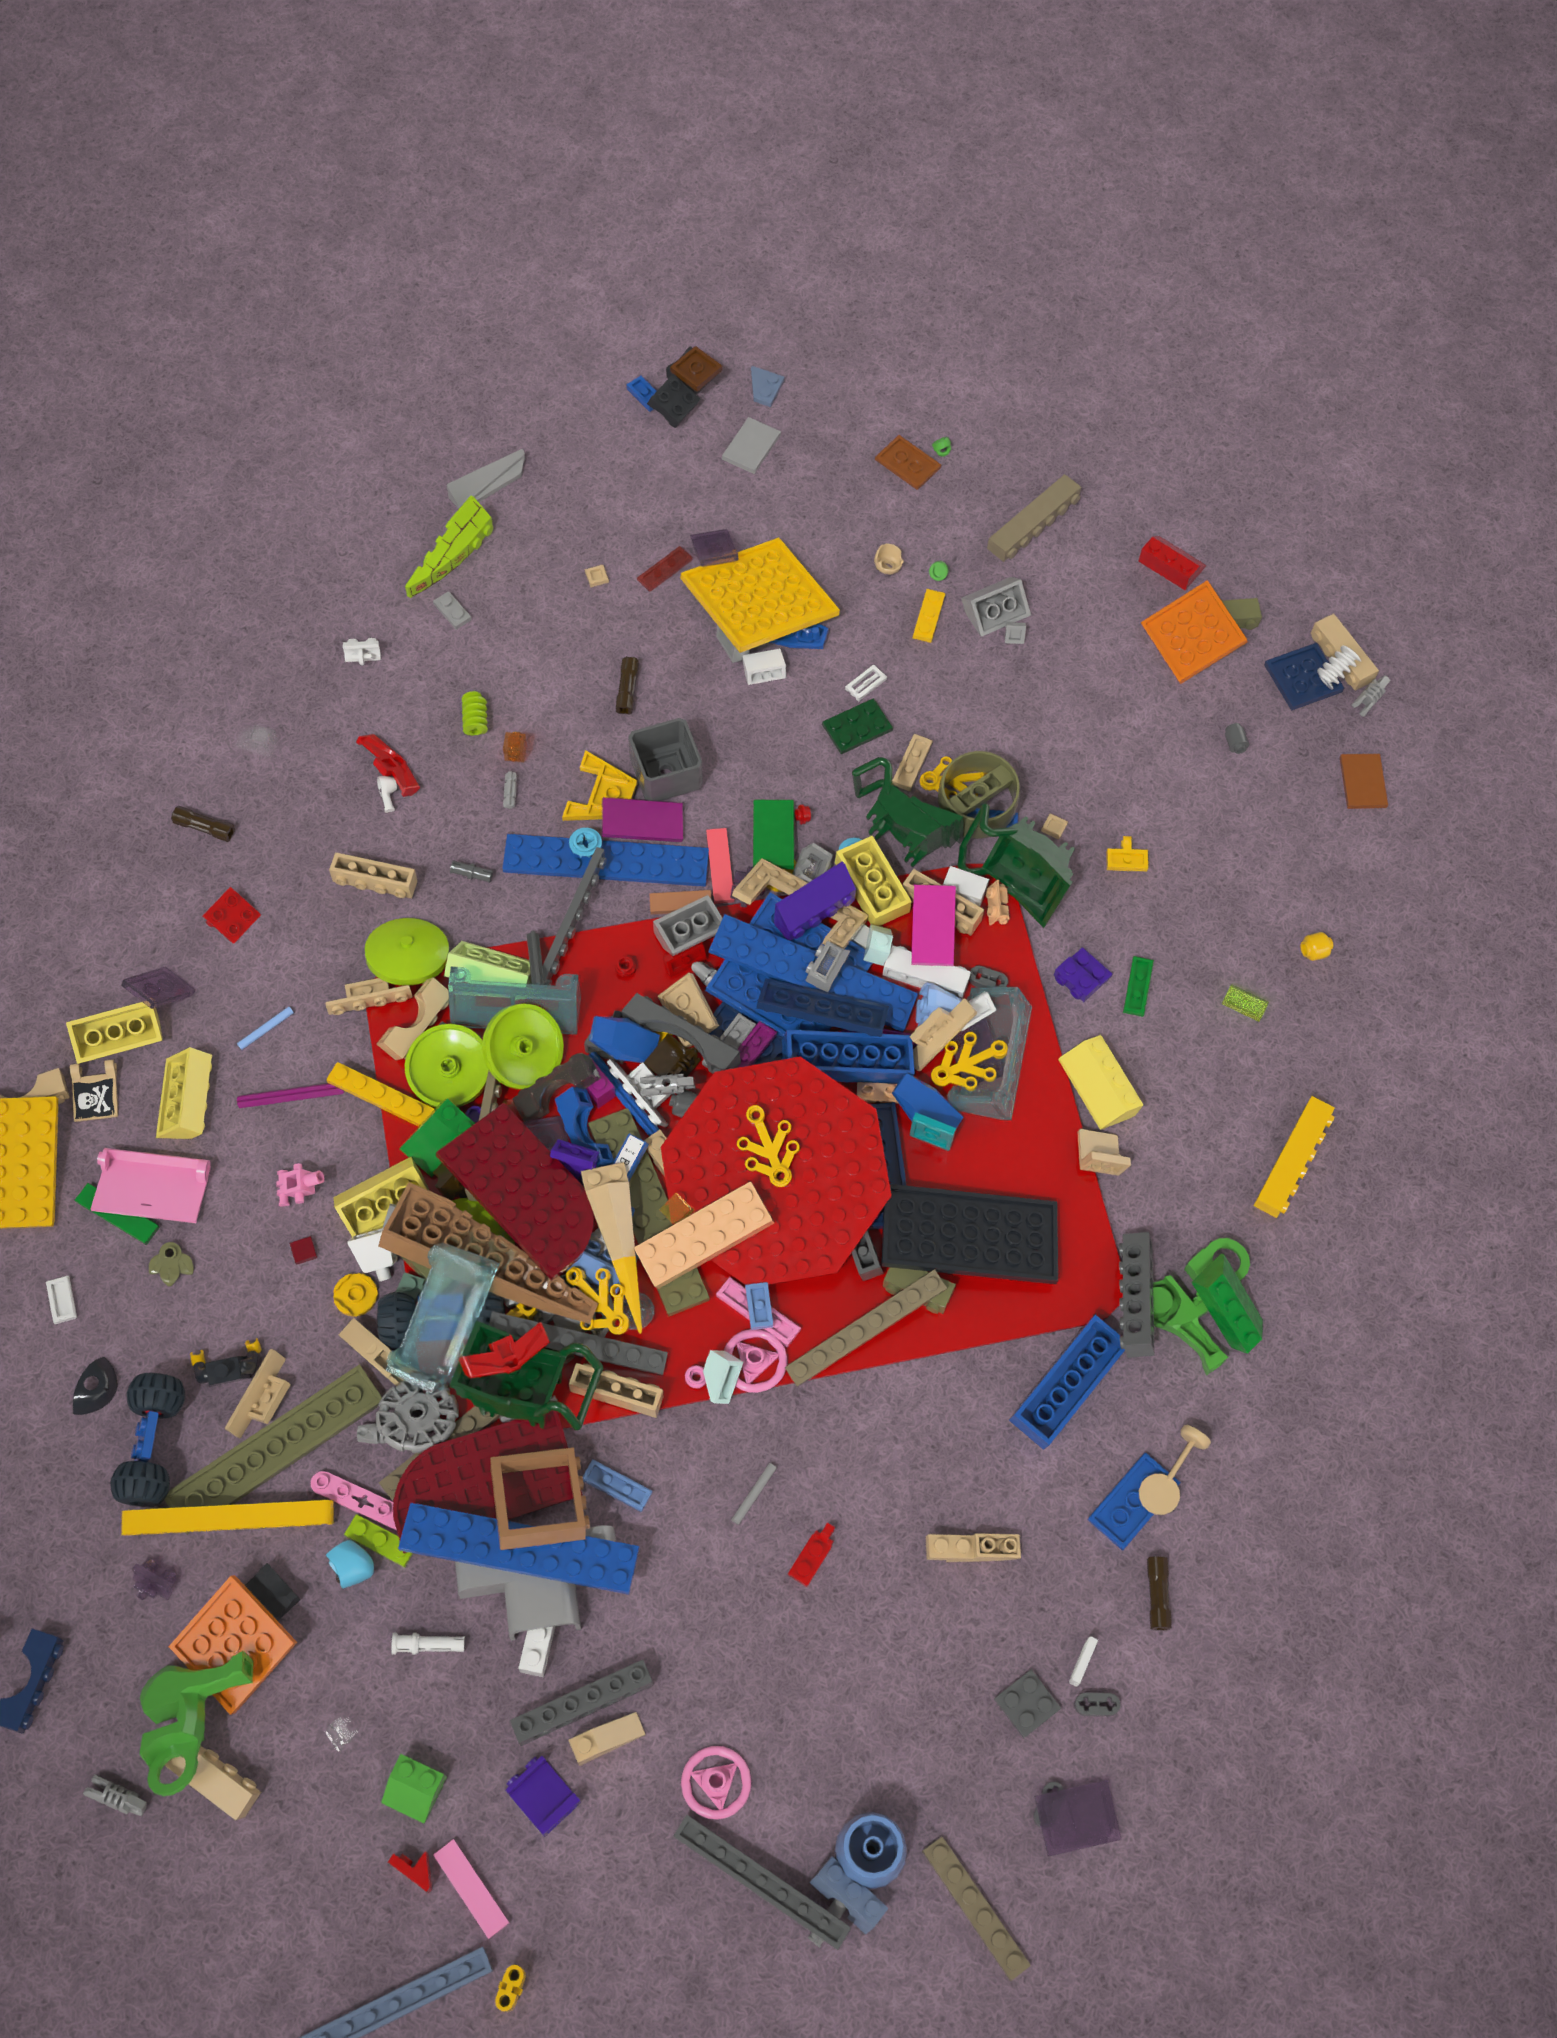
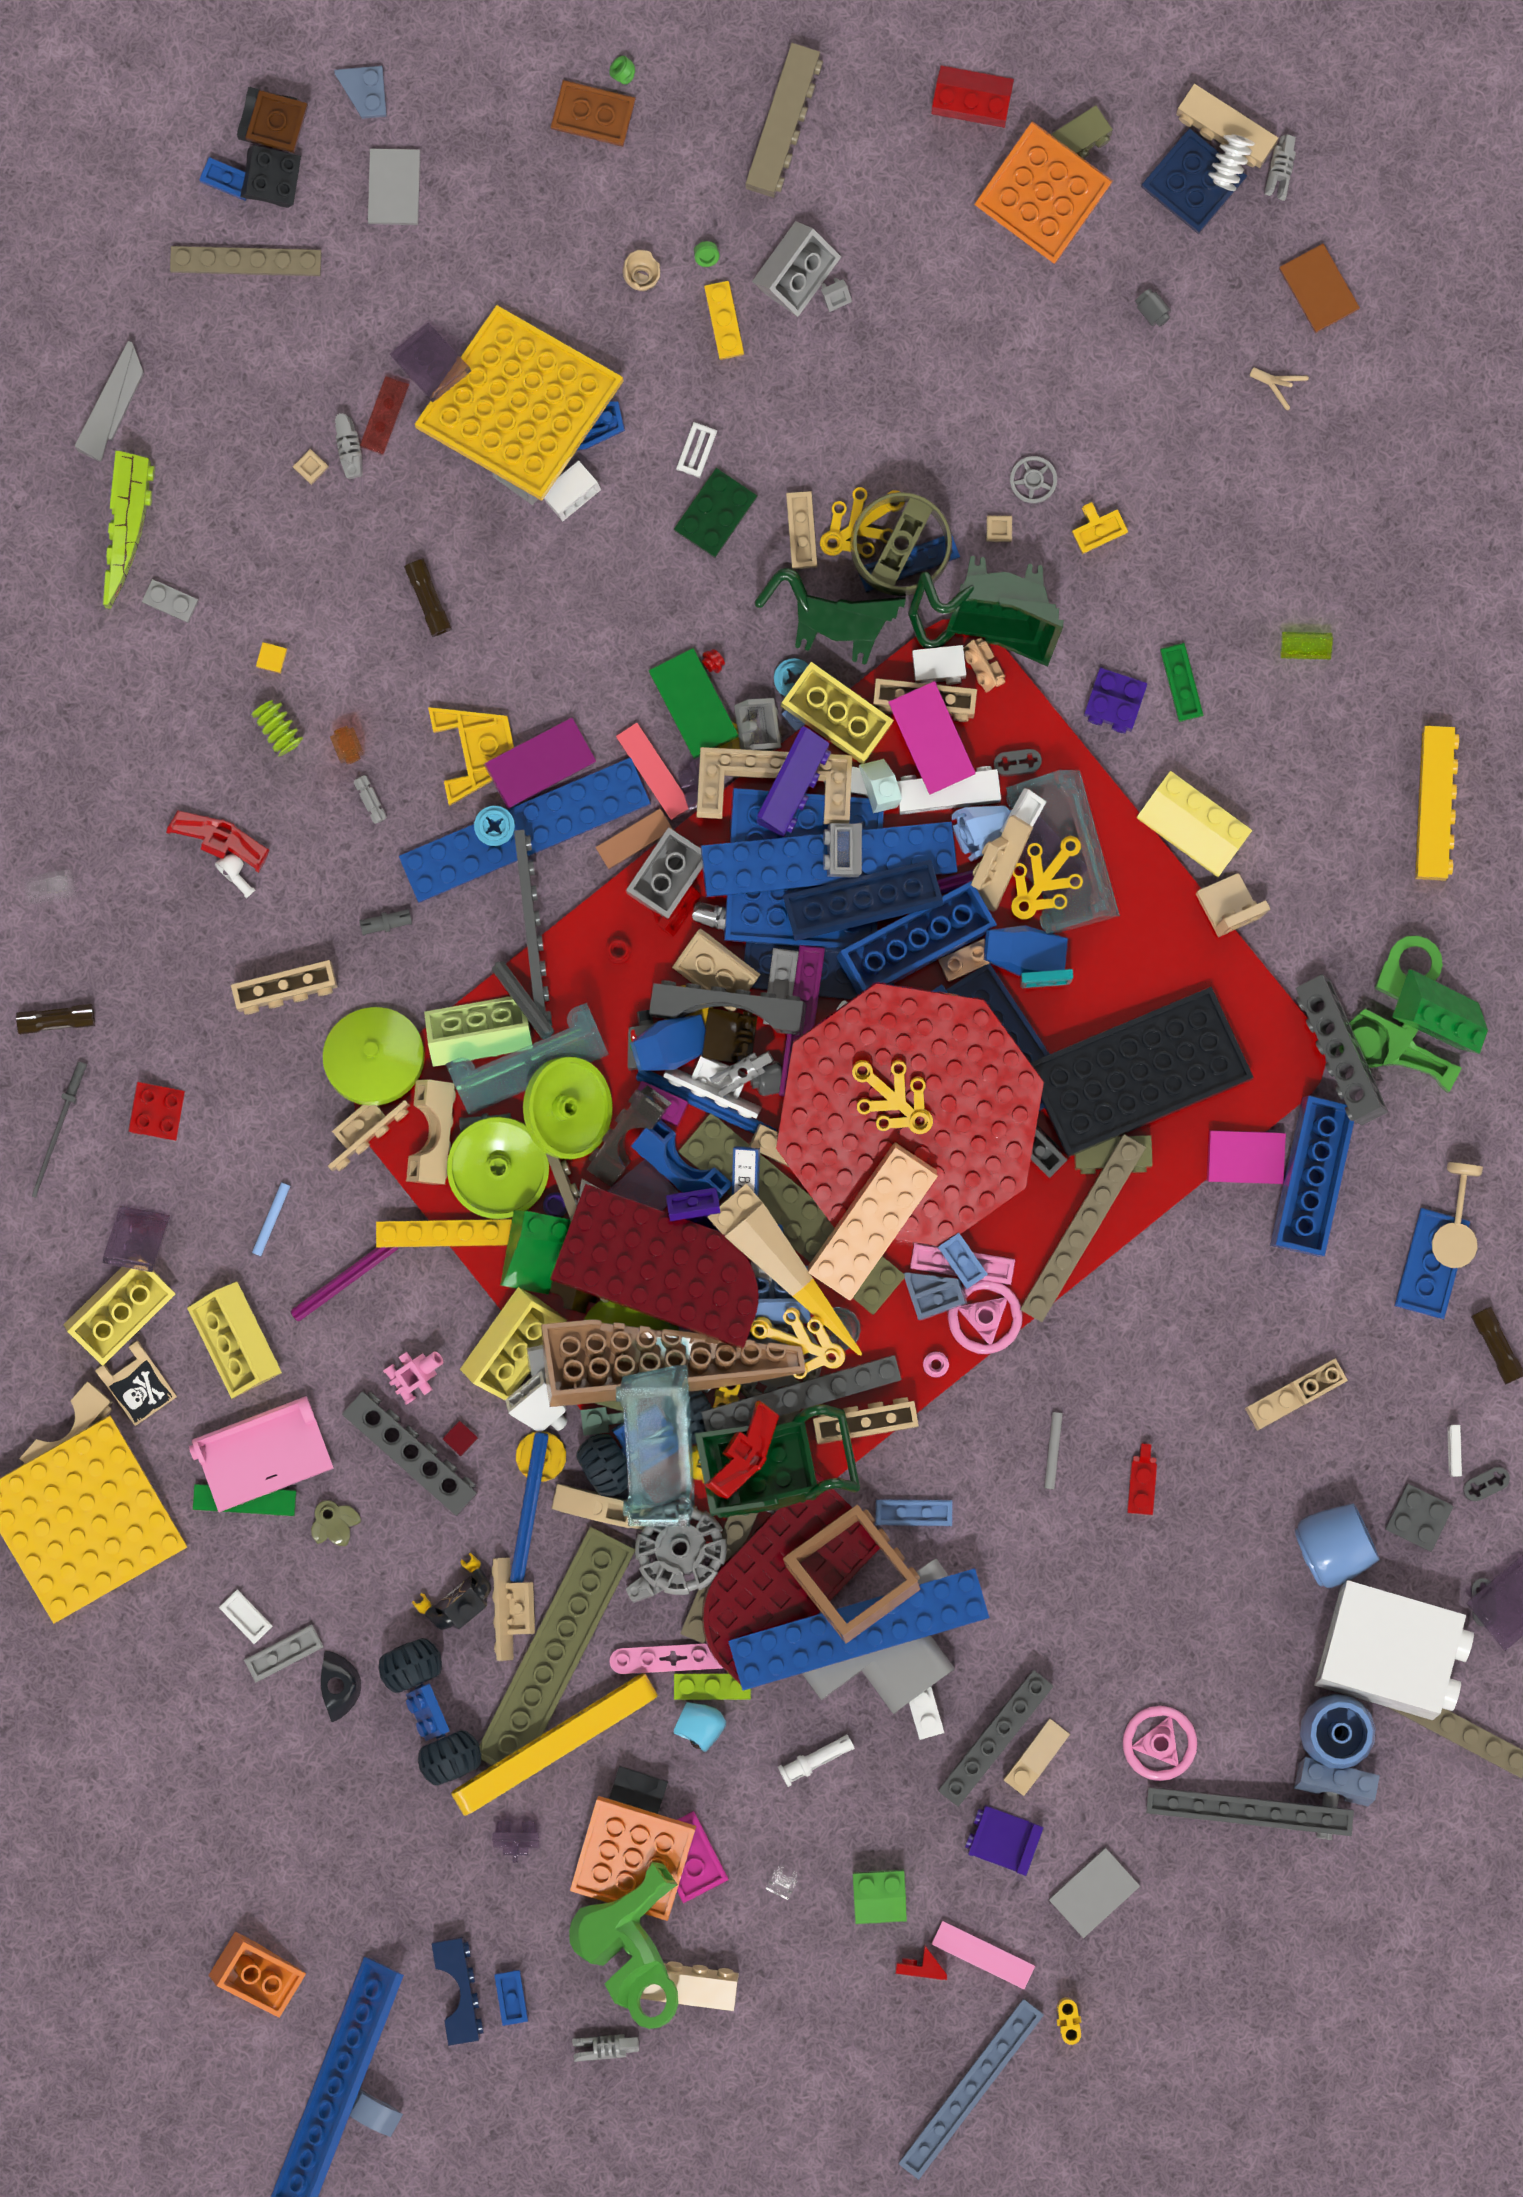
camera: 20 degrees left, 20 degrees up
(67, 1711) = (511, 1997): none -> blue plate
(71, 1342) = (284, 1653): none -> light grey tile
(177, 879) = (69, 1098): none -> dark grey sword
(239, 1192) = (357, 1415): none -> dark grey brick
(285, 1683) = (702, 1865): none -> dark pink tile
(322, 1326) = (529, 1507): none -> blue axle
(361, 651) = (100, 713): white hips -> none
(498, 674) = (271, 657): none -> yellow tile
(593, 1884) = (1094, 1892): none -> light grey tile
(628, 443) = (245, 261): none -> dark tan plate
(629, 573) = (348, 446): none -> light grey hinge
(665, 747) = (525, 660): dark grey plate -> none
(676, 1209) = (830, 1209): clear yellow piece -> none
(721, 1375) = (962, 1352): light aqua slope -> none
(723, 1322) = (934, 1294): none -> sand blue wing
(946, 1687) = (1336, 1545): none -> medium blue piece
(952, 1803) = (1393, 1651): none -> white brick
(1022, 1342) = (1246, 1157): none -> dark pink tile
(1095, 807) = (1033, 479): none -> light grey wheel
(1301, 821) = (1280, 380): none -> tan plant
(1316, 946) = (1355, 535): yellow head -> none

